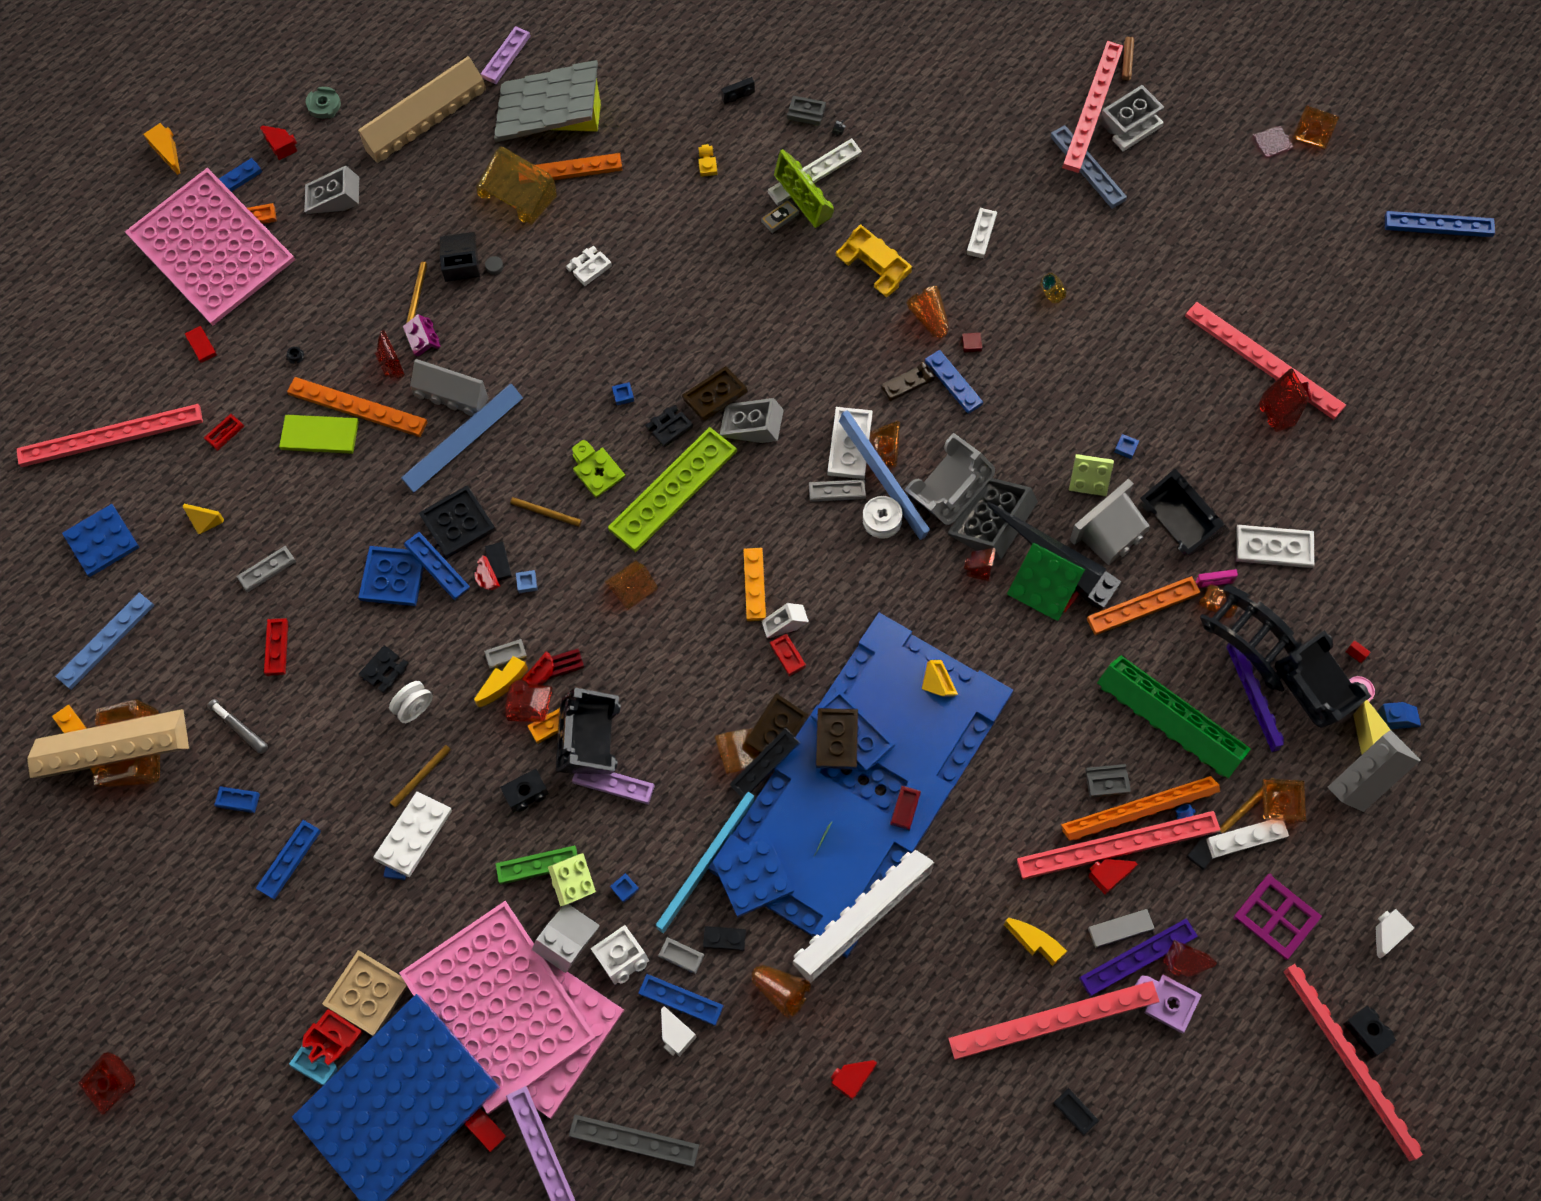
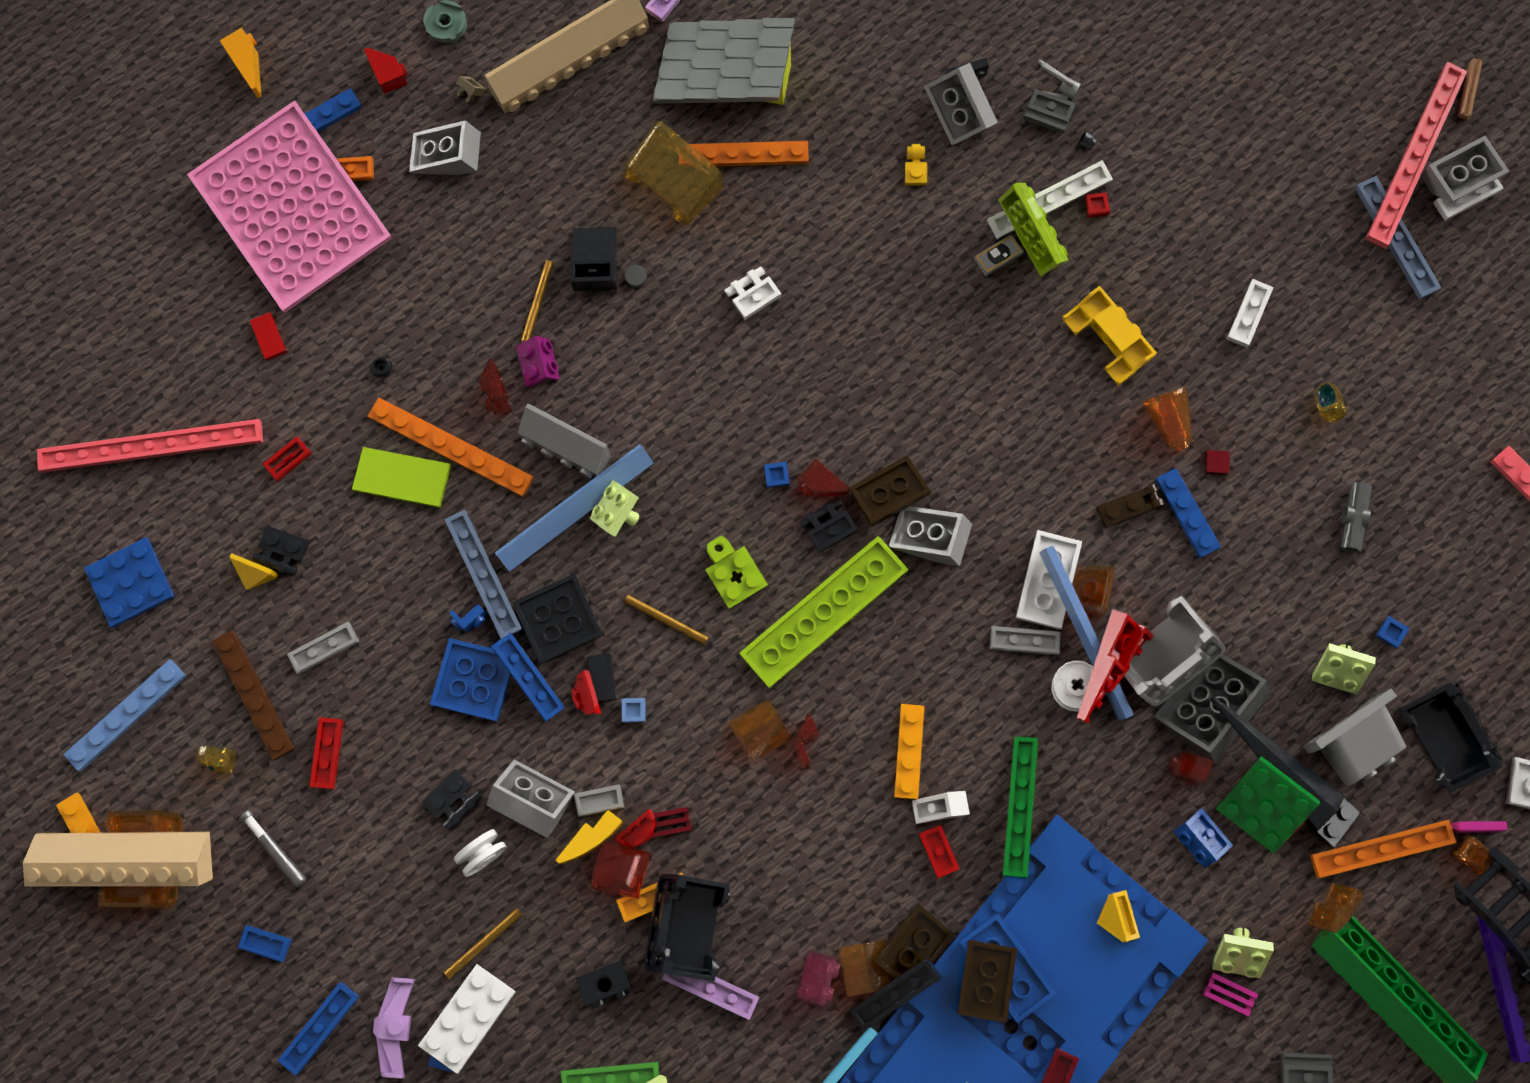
camera: 10 degrees right, 10 degrees up
(184, 661) = (217, 759): none -> clear yellow rock
(211, 612) = (253, 695): none -> reddish brown plate
(228, 496) = (284, 544): none -> black plate
(348, 146) = (471, 87): none -> dark tan tile
(351, 850) = (393, 1027): none -> lavender plate
(385, 531) = (474, 618): none -> blue bracket
(392, 494) = (483, 574): none -> sand blue plate
(447, 658) = (530, 798): none -> light grey slope
(495, 431) = (615, 509): none -> yellowish green plate
(659, 394) = (821, 482): none -> clear red slope
(669, 581) = (806, 734): none -> clear red slope
(700, 761) = (817, 978): none -> clear pink slope
(735, 111) = (960, 104): none -> light grey slope
(819, 92) = (1068, 87): none -> light grey plant
(849, 611) = (1020, 808): none -> green plate
(852, 171) = (1097, 204): none -> red tile
(909, 481) = (1119, 645): none -> red wedge
(998, 616) = (1203, 838): none -> blue bracket
(1042, 697) = (1242, 955): none -> yellowish green plate
(1055, 729) = (1249, 1003): none -> dark pink tile
(1085, 367) = (1356, 517): none -> dark grey piece
(1113, 649) = (1338, 909): none -> clear orange slope

